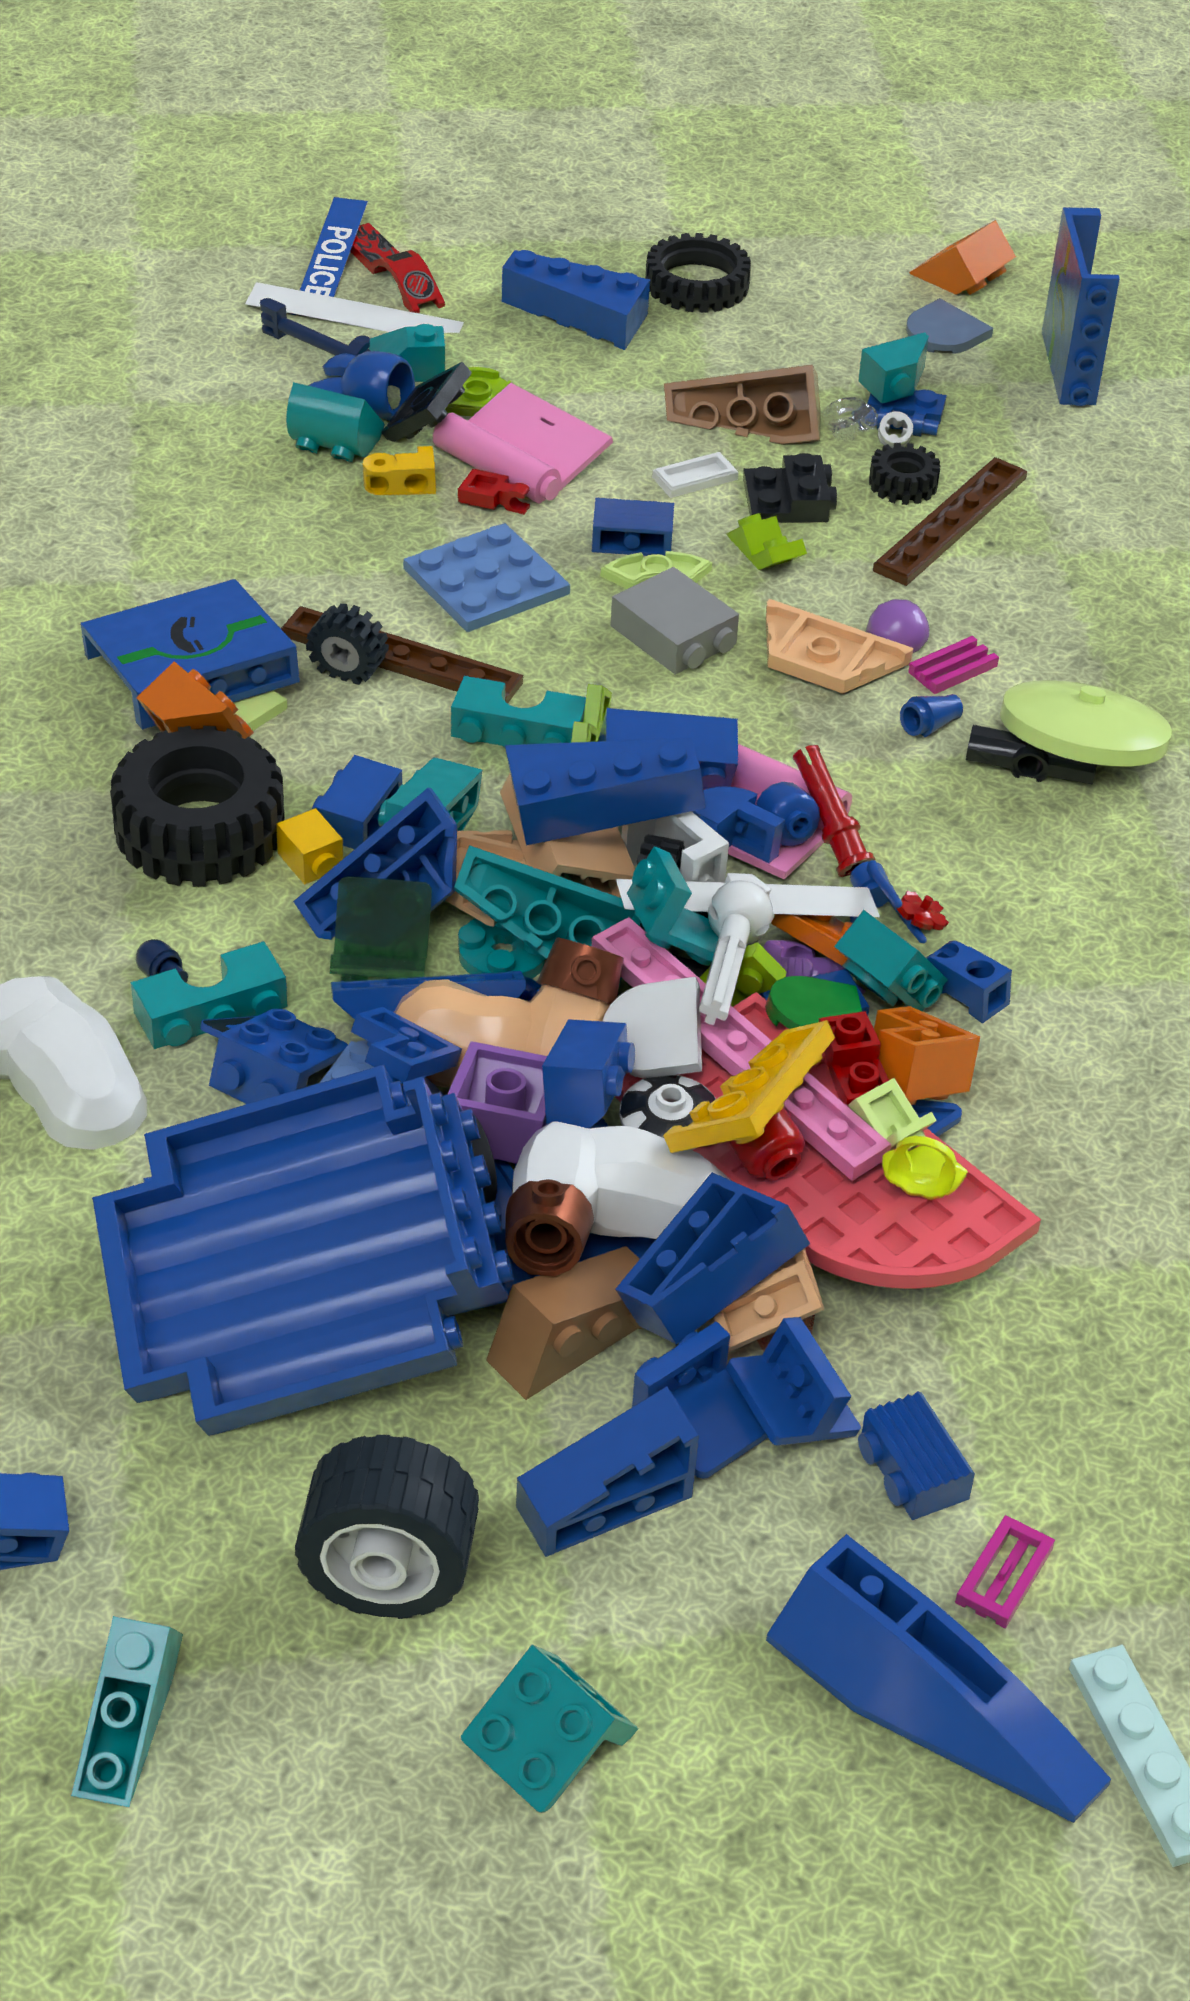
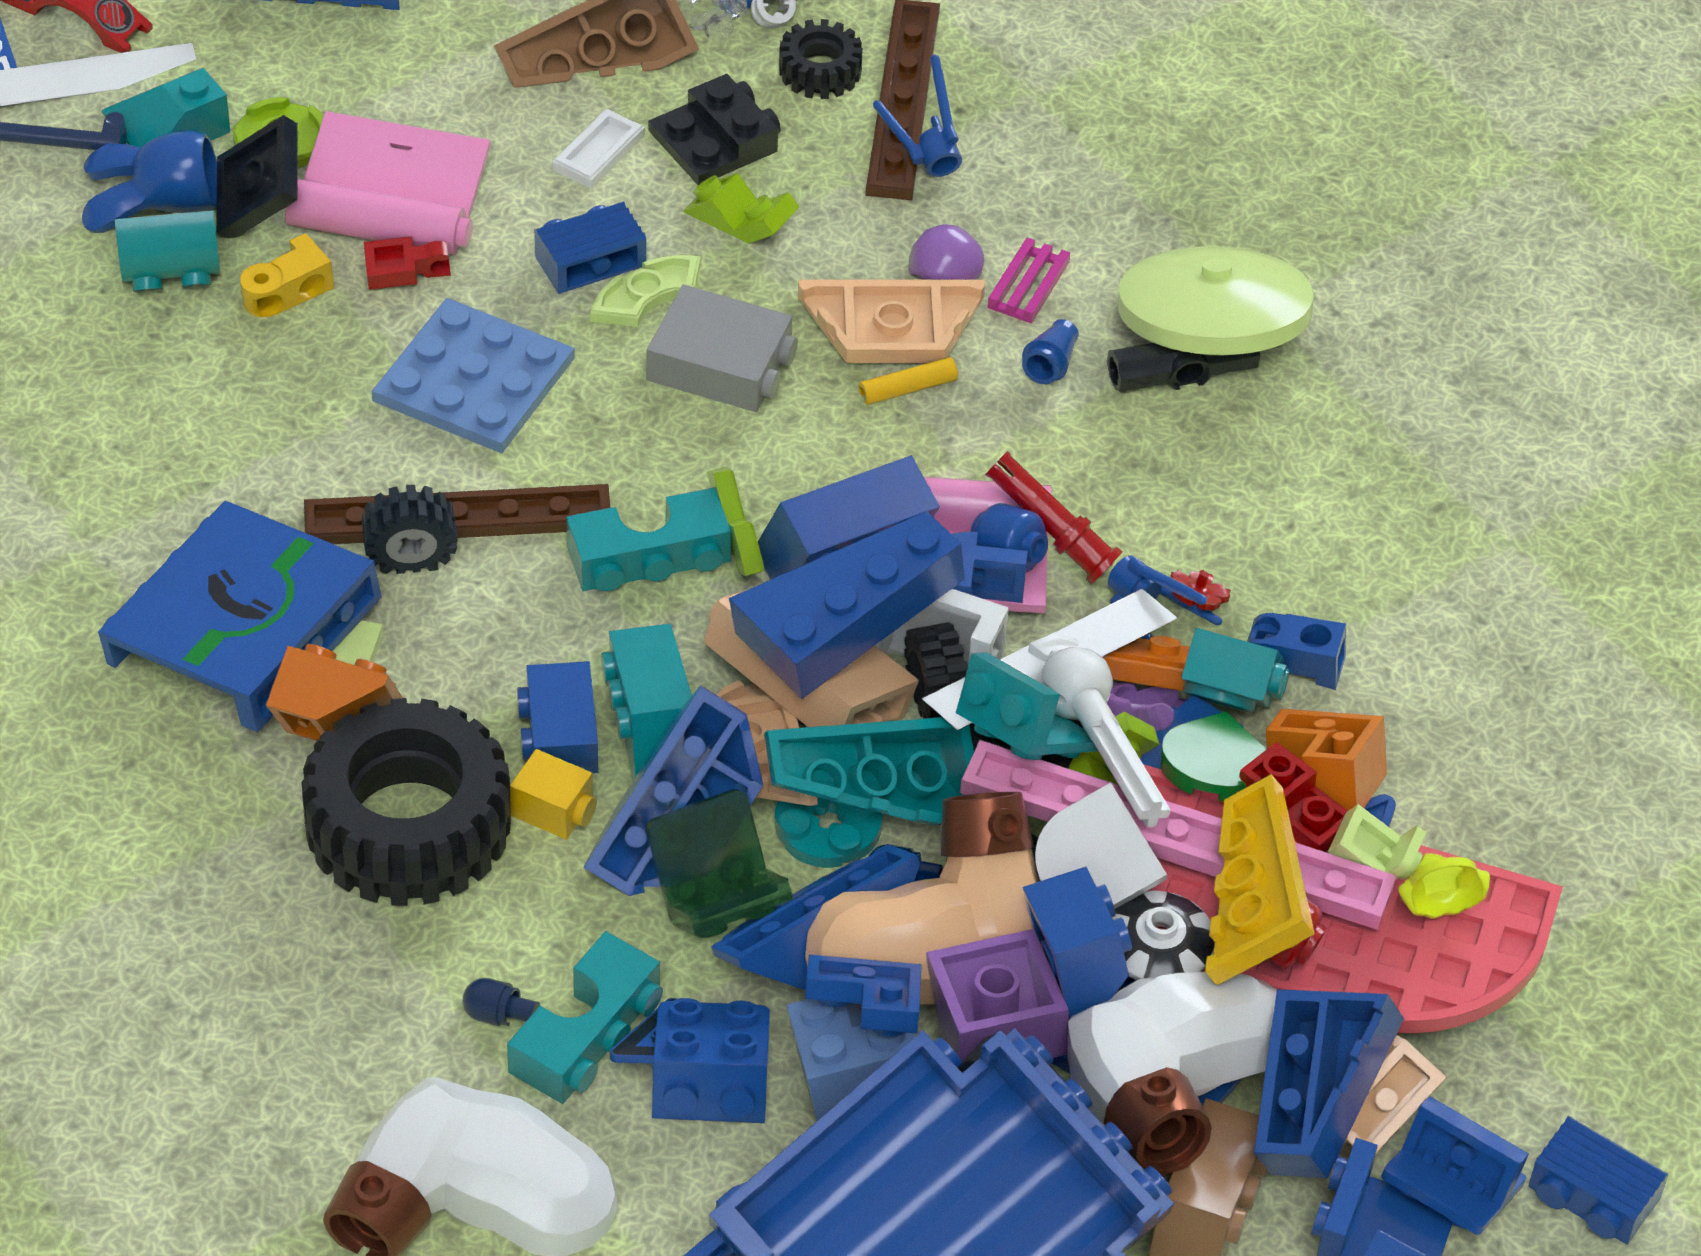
camera: 30 degrees left, 5 degrees up
(805, 694) = (908, 380): none -> yellow piece
(948, 553) = (937, 144): none -> blue plant

